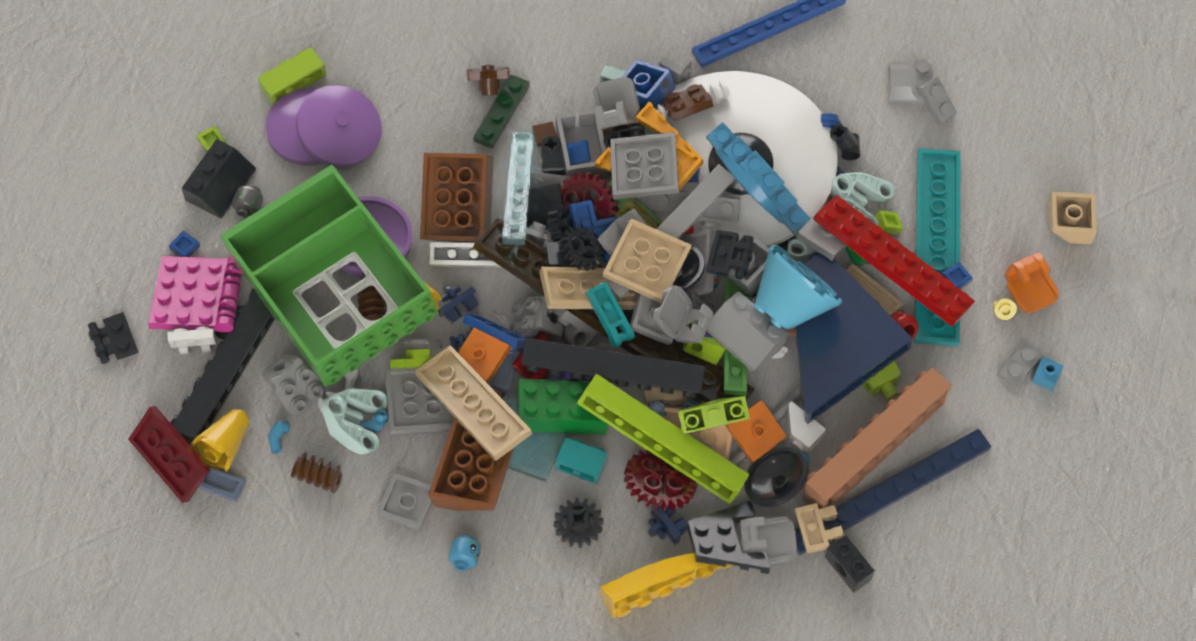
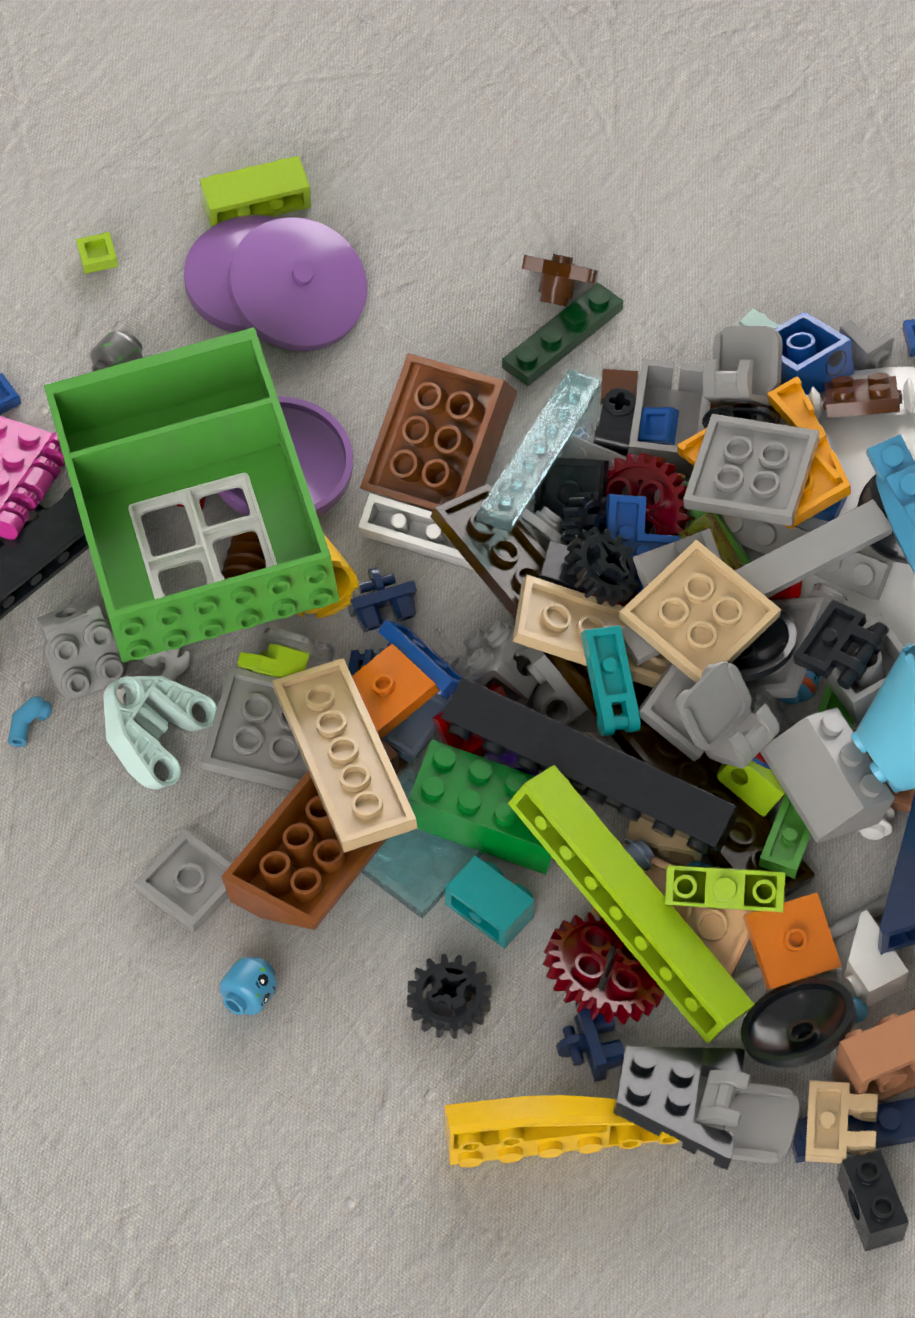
camera: 20 degrees right, 5 degrees down
(217, 179) = (82, 309): black slope -> none
(317, 473) = (65, 792): reddish brown piece -> none
(377, 422) = (188, 746): dark azure arm -> none

